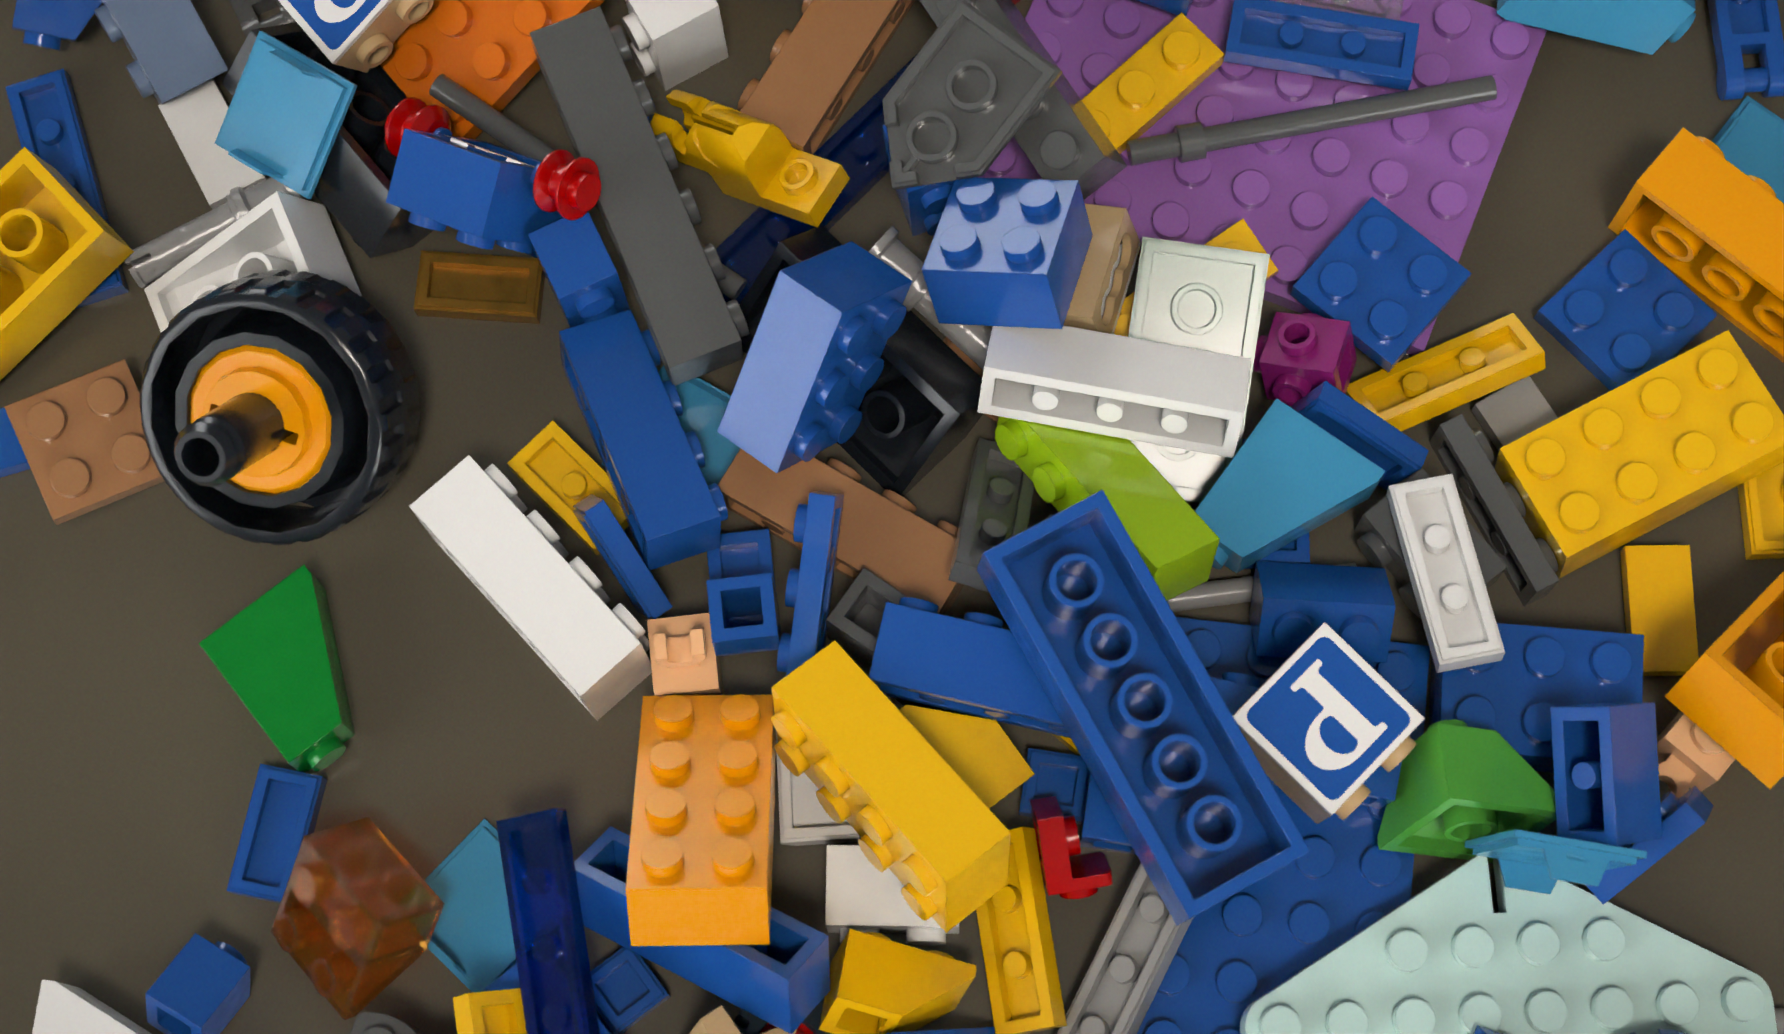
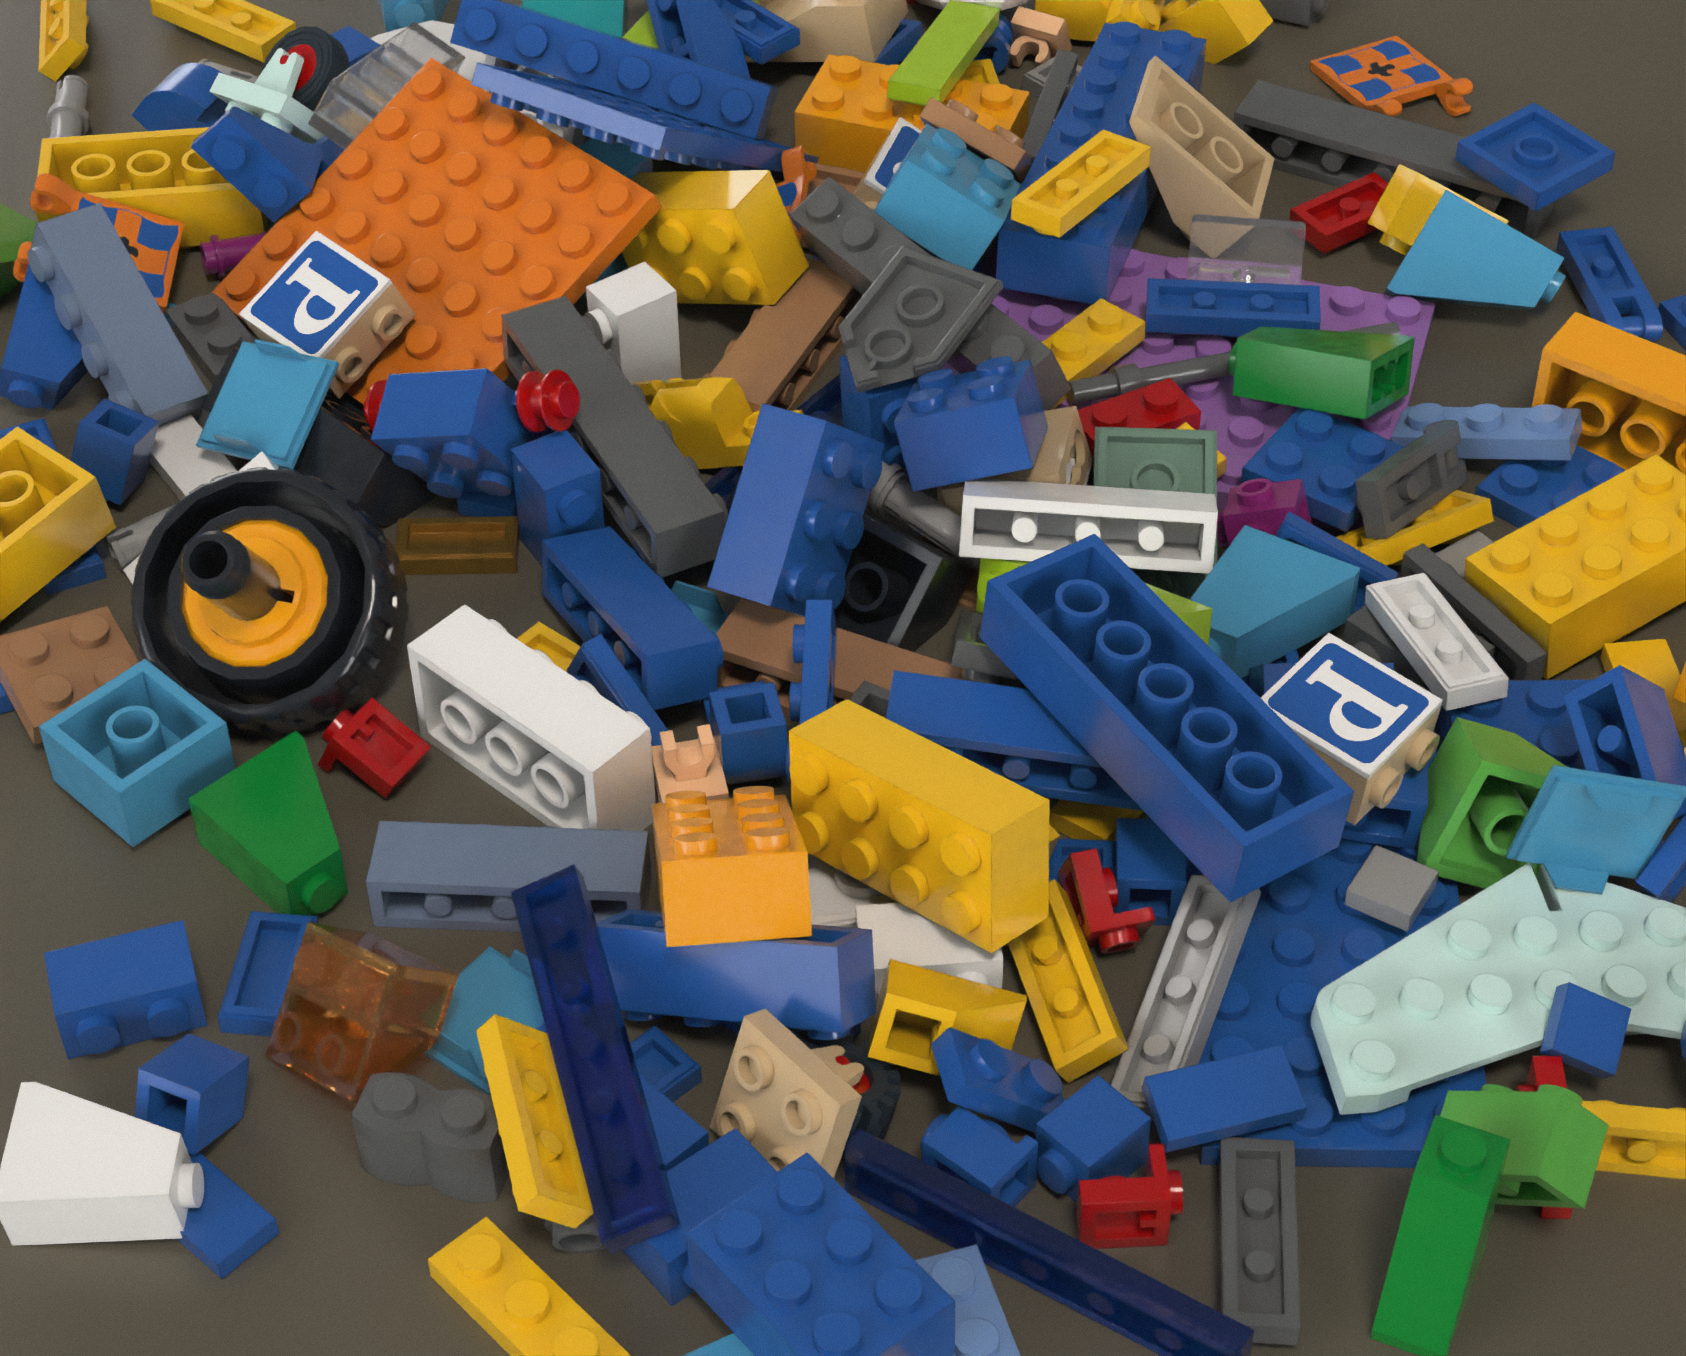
camera: 10 degrees left, 30 degrees down
(129, 145) = (115, 448): none -> blue brick
(140, 857) = (124, 989): none -> blue brick
(152, 568) = (137, 751): none -> dark azure brick
(382, 570) = (373, 747): none -> red bracket
(503, 751) = (467, 872): none -> sand blue brick
(1192, 196) = (1152, 406): none -> red plate
(1346, 867) = (1391, 888): none -> light grey tile
(1400, 162) = (1322, 369): none -> green slope
(1469, 318) = (1411, 480): none -> dark grey plate
(1564, 241) = (1498, 431): none -> medium blue plate

